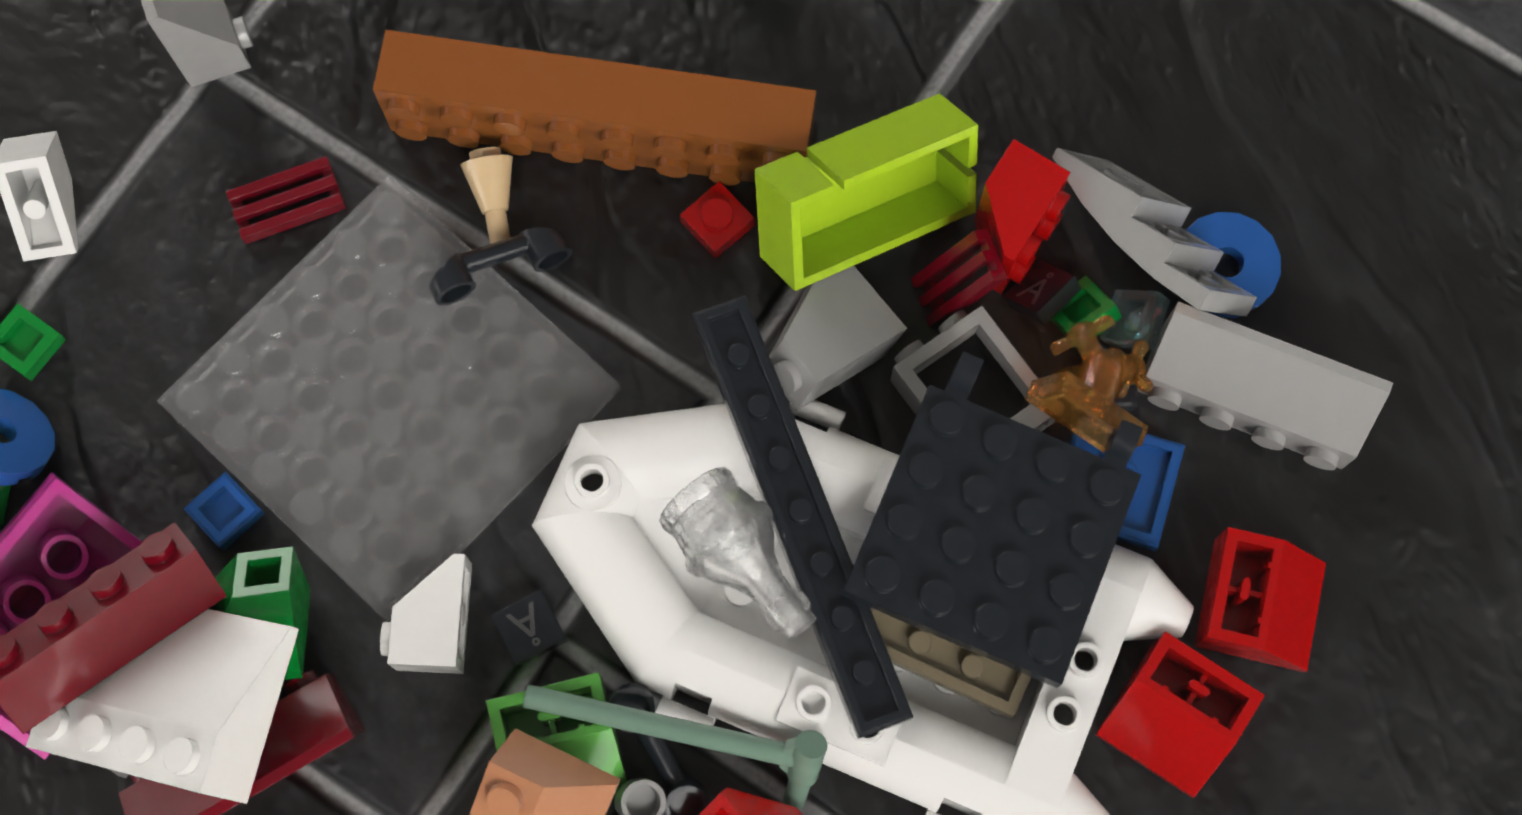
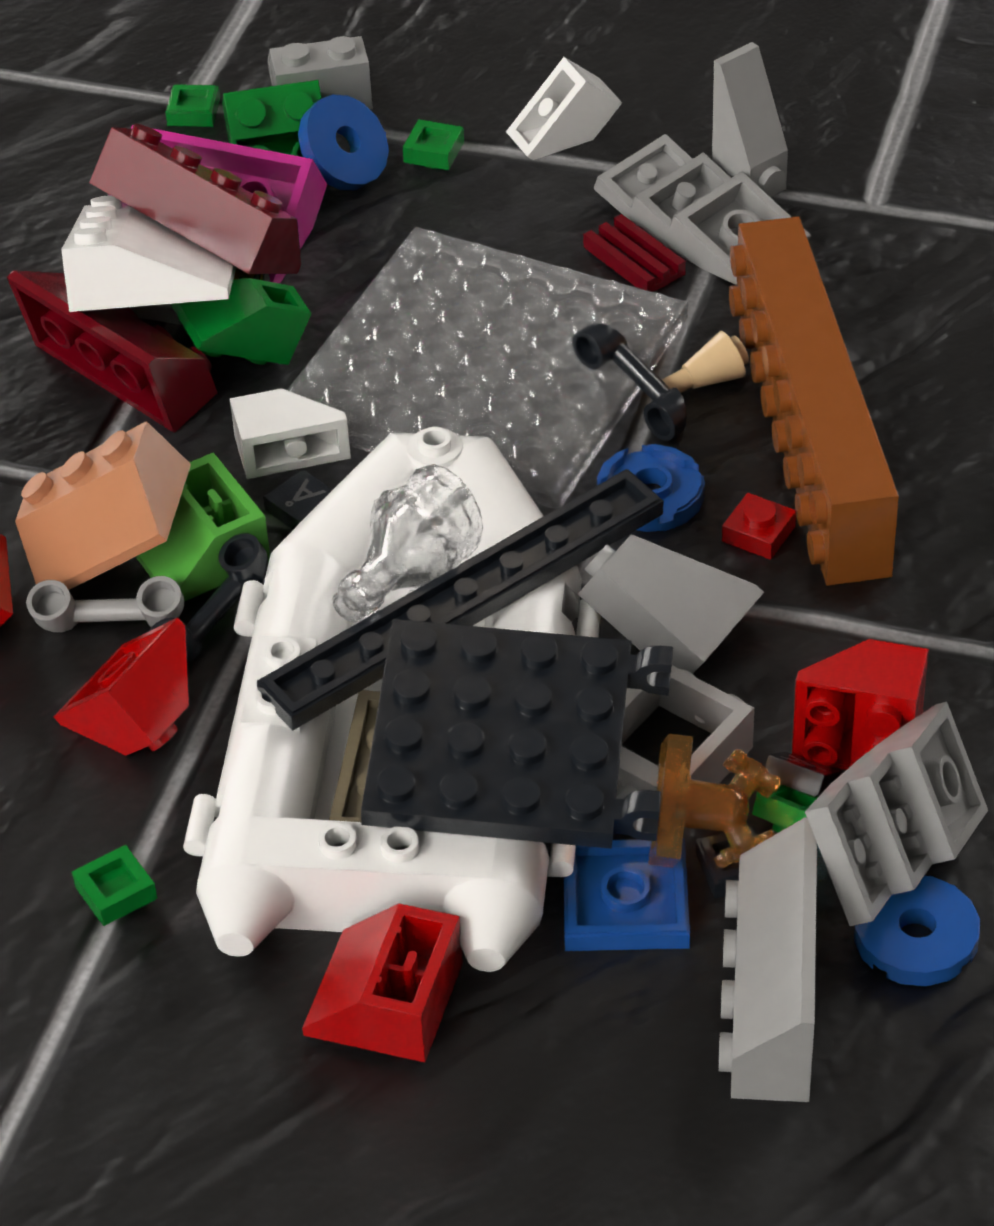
camera: 75 degrees right, 30 degrees down
(224, 511) = (334, 294): blue tile -> none
(252, 114) = (687, 202): none -> light grey slope
(634, 327) = (670, 468): none -> blue tile
(798, 757) = (234, 657): sand green bar -> none
(866, 191) = (816, 562): lime piece -> none
(946, 262) = (779, 683): dark red tile -> none
(1260, 599) = (537, 1024): red slope -> none

